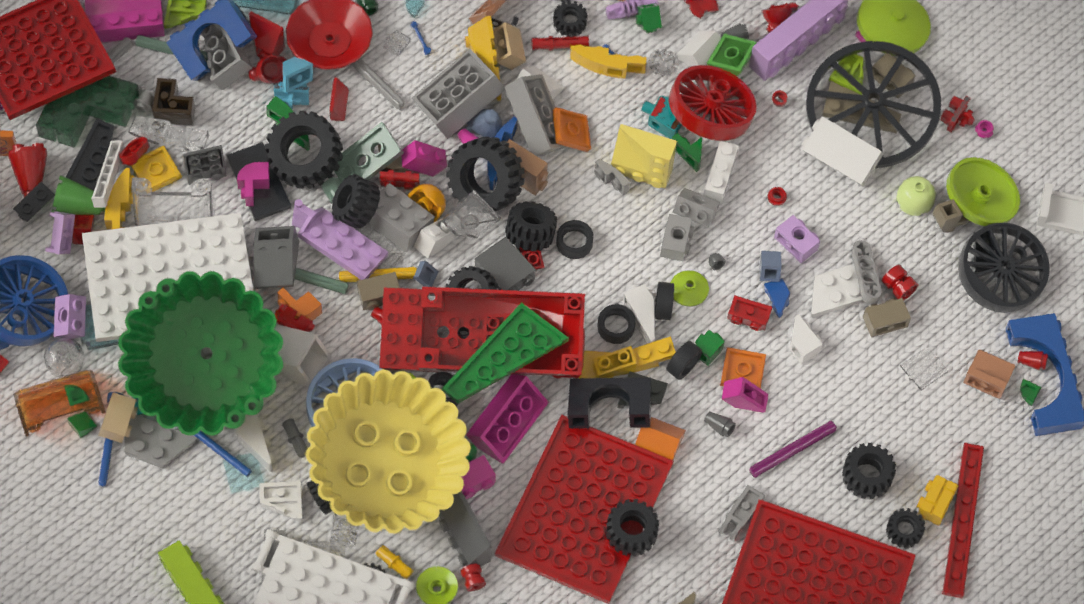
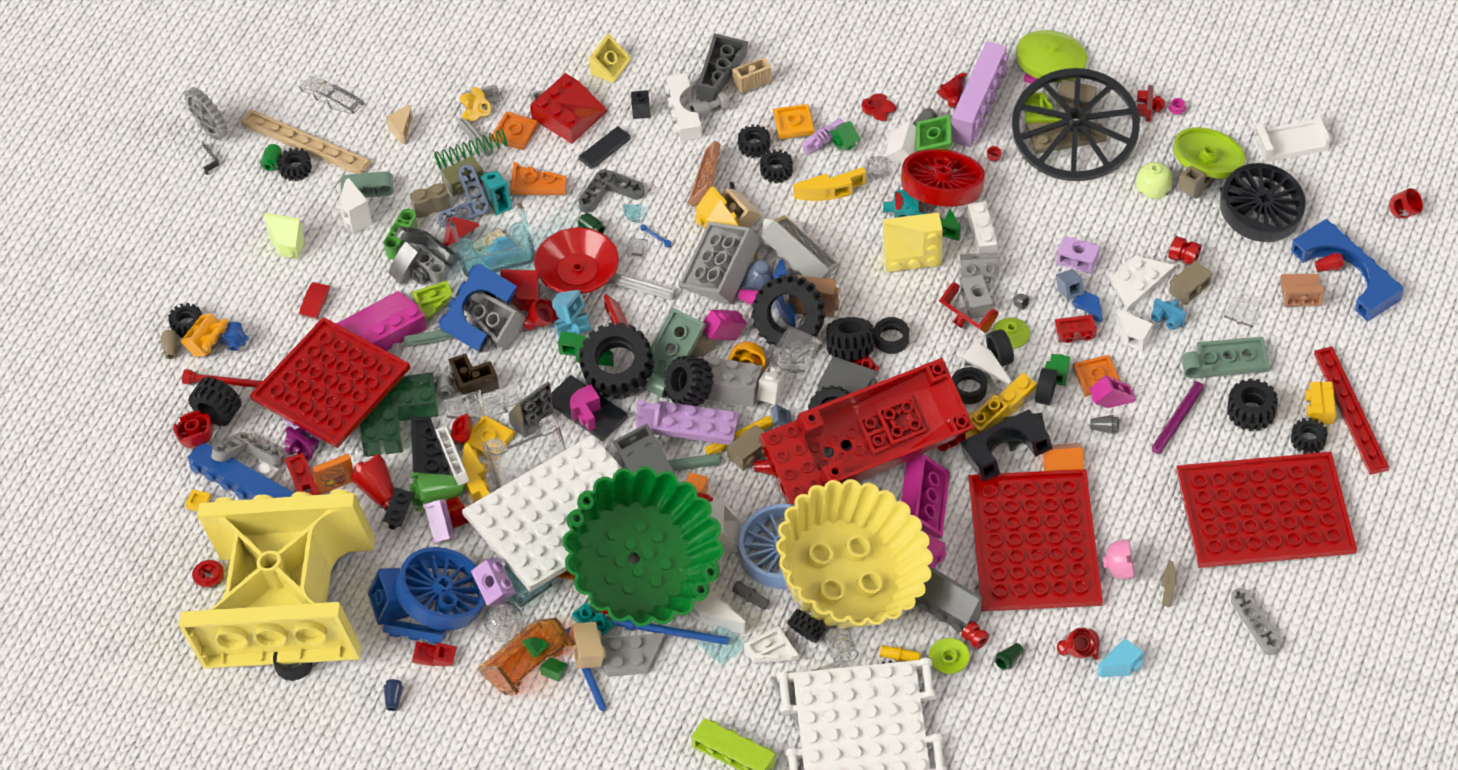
camera: 20 degrees left, 10 degrees down
(400, 179) = (719, 349): red plate -> none
(512, 346) = (902, 430): green wing -> none
(558, 42) = (772, 192): red pin -> none
(571, 129) = (834, 250): orange tile -> none
(608, 173) = (886, 271): light grey slope -> none
(632, 512) = (1087, 519): black tyre -> none
(648, 569) = (1119, 560): none -> bright pink cylinder
(650, 251) = (961, 318): none -> red piece
(742, 511) = (1167, 483): light grey hinge -> none
(777, 191) = (1039, 229): red plate -> none
(842, 150) = (1073, 169): white panel -> none
(850, 337) = (1170, 311): none -> dark azure hips
(859, 410) = (1210, 362): none -> sand green hinge
(863, 272) = (1140, 243): light grey beam -> none
(1029, 391) = (1341, 289): green tile -> none

